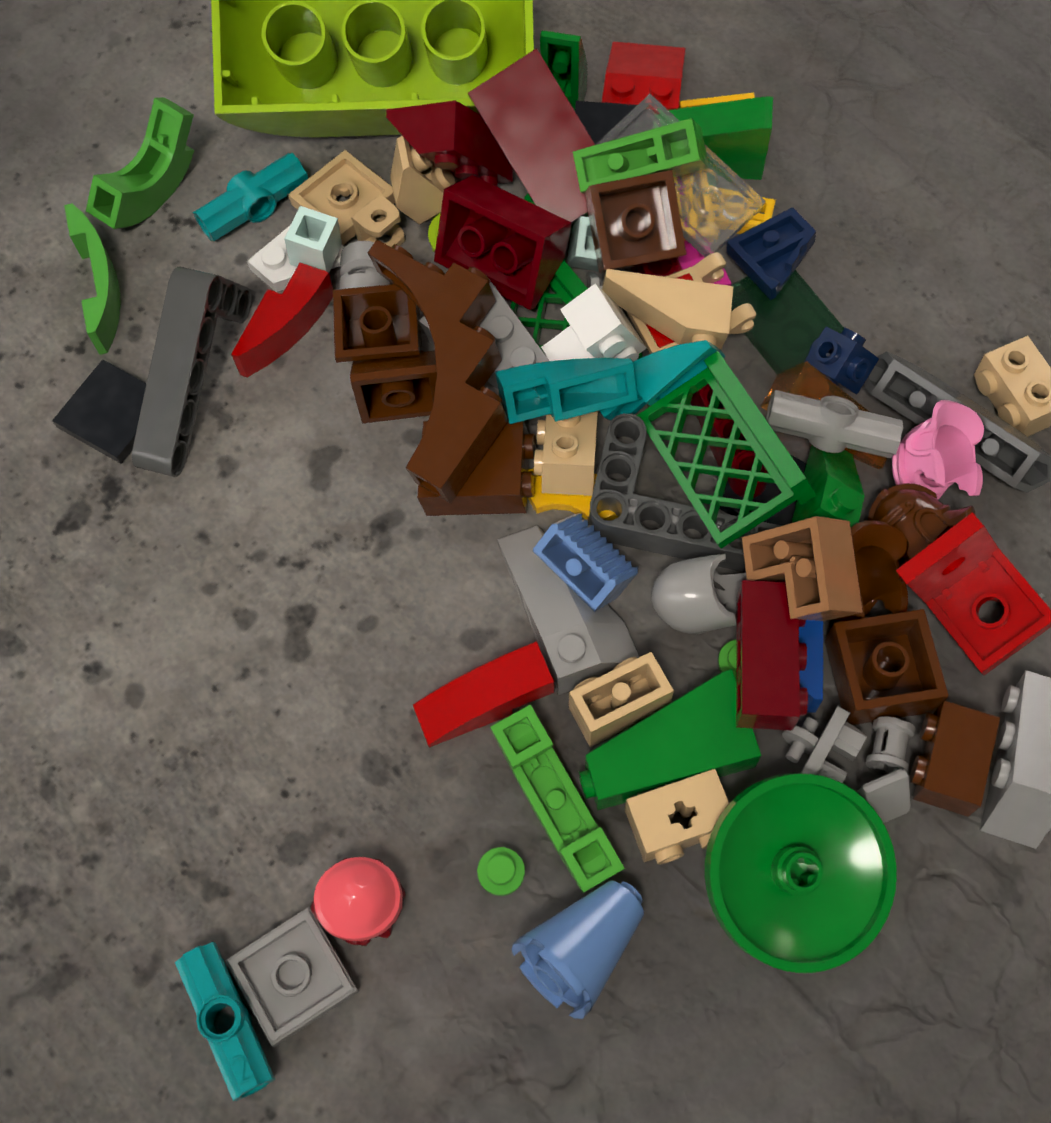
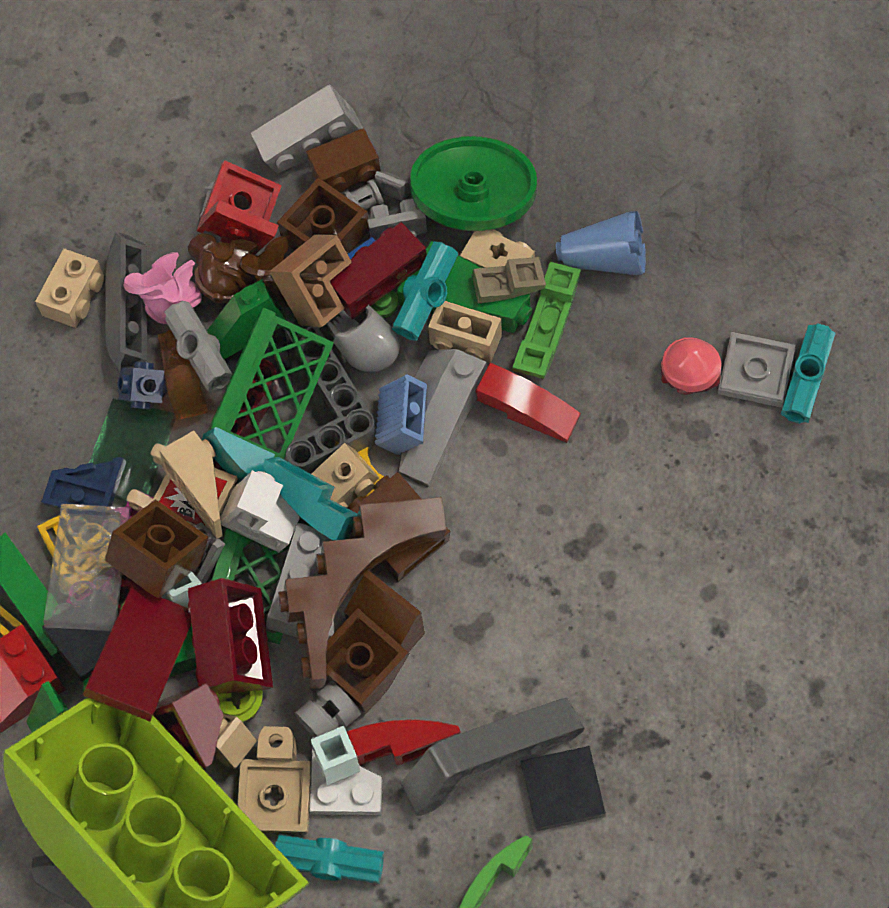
camera: 130 degrees left, 0 degrees up
(501, 871) = (608, 319): bright green plate -> none
(631, 785) = (508, 281): none -> dark tan slope
(661, 149) = (104, 574): bright green slope -> none
(694, 679) = (425, 291): none -> teal piece

